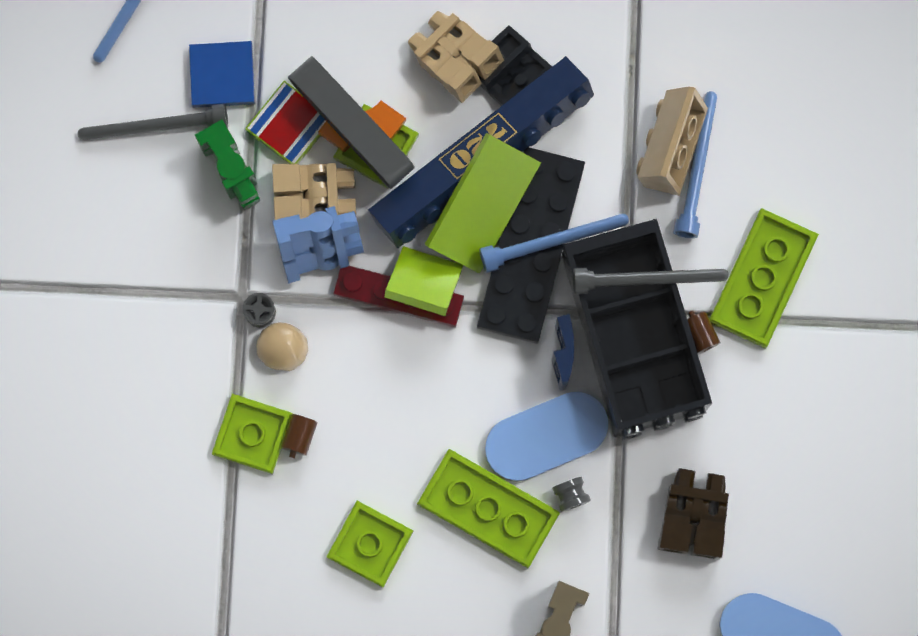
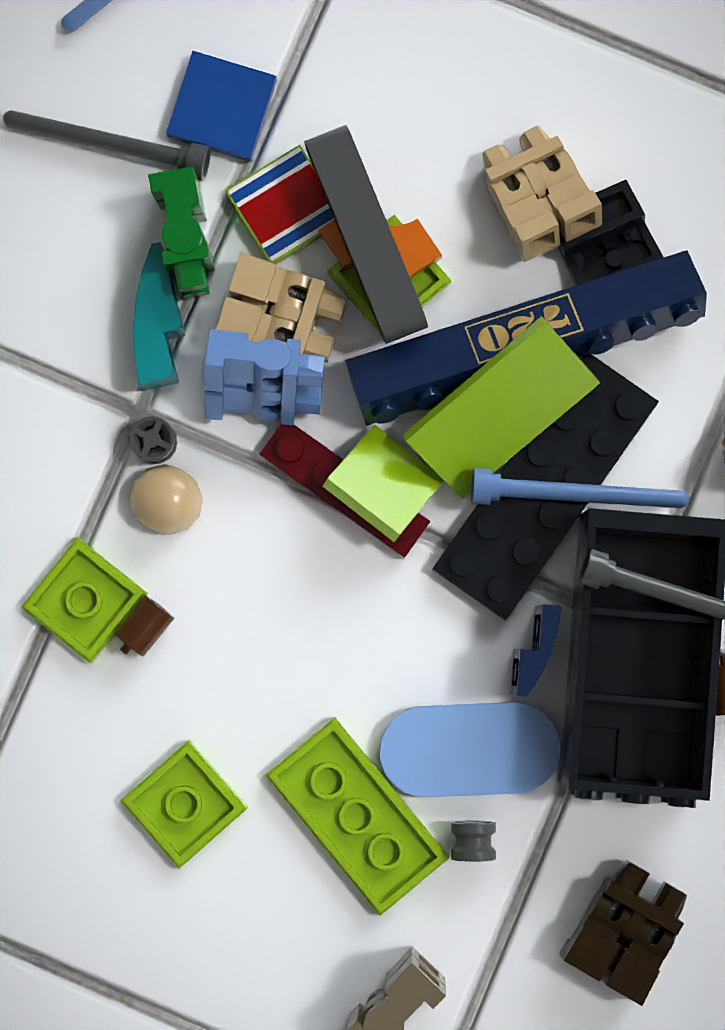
camera: 25 degrees right, 5 degrees up
(232, 232) = (155, 323): none -> teal slope

